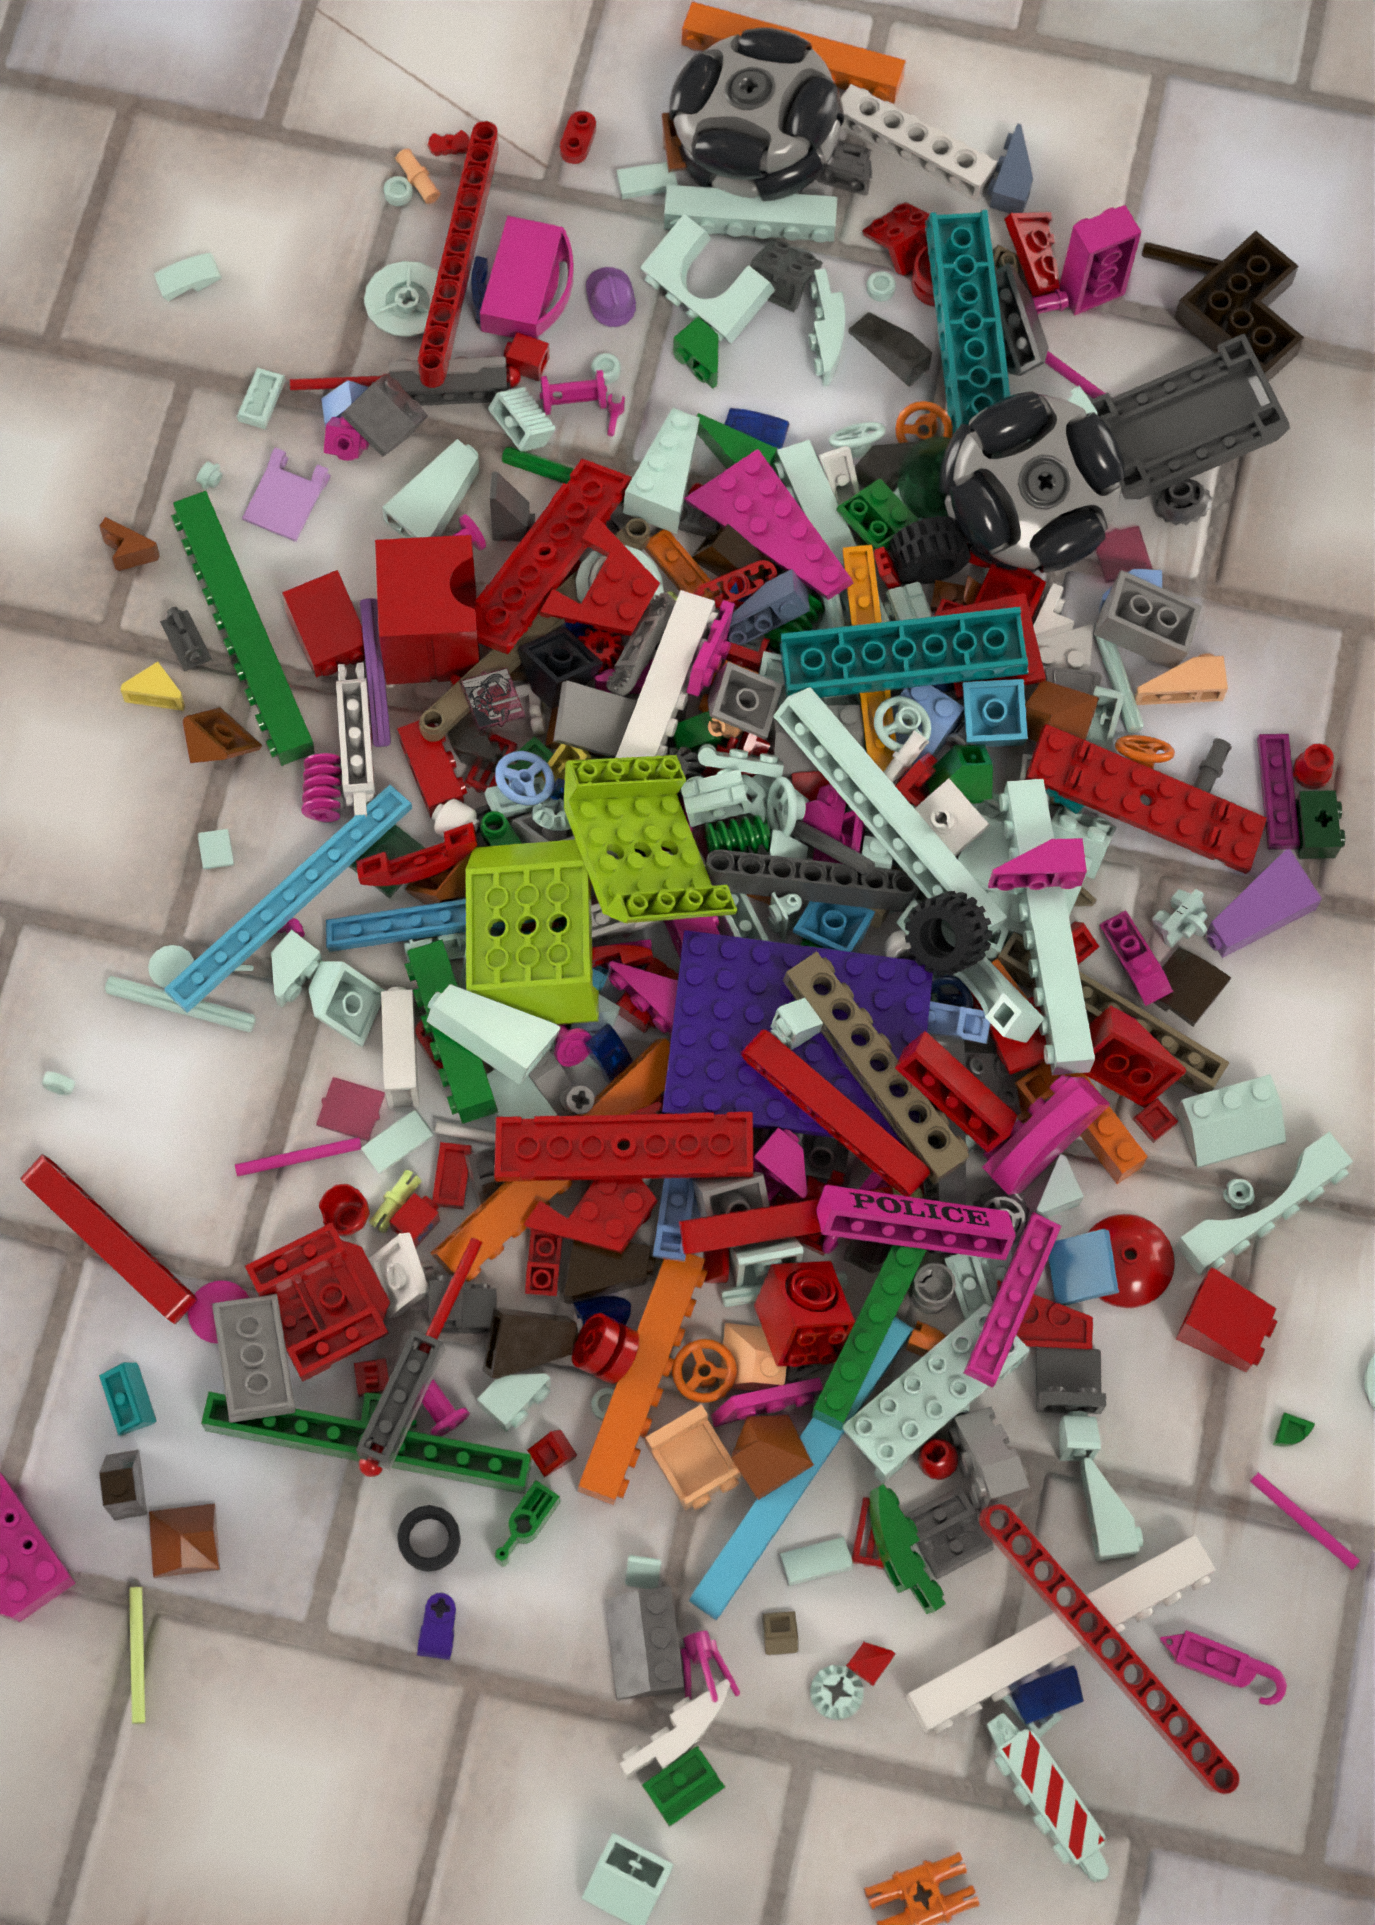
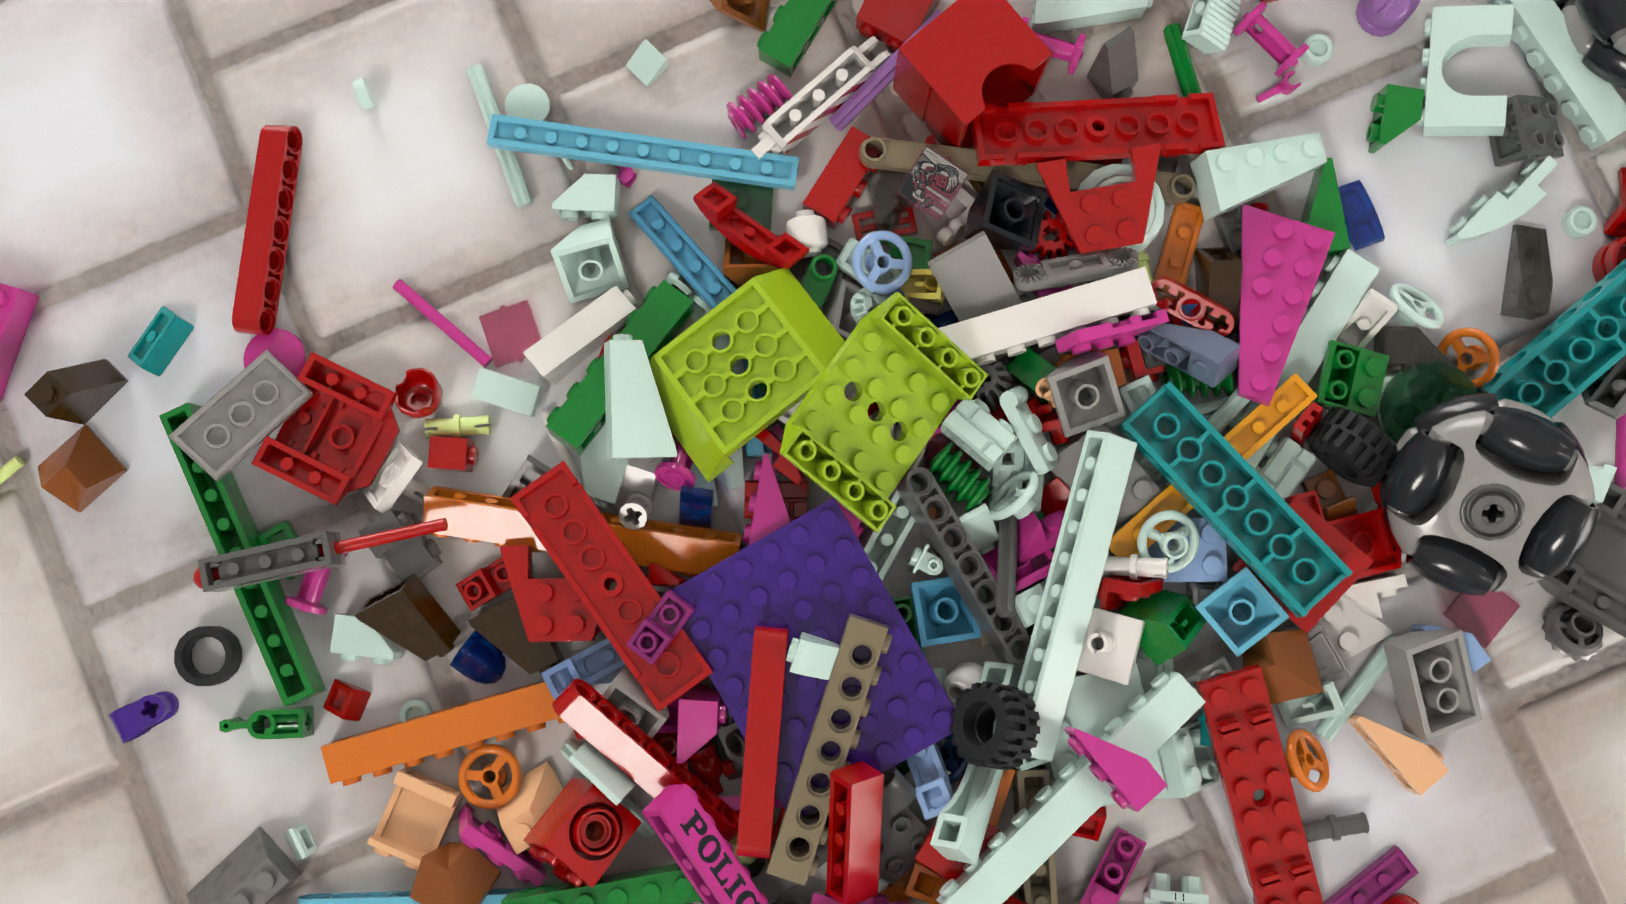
camera: 60 degrees right, 15 degrees up
(371, 1376) = (306, 515): red tile -> none
(451, 1176) = (510, 454): red tile -> none
(605, 1348) = (446, 687): red wheel -> none
(687, 1123) = (661, 627): none -> magenta slope

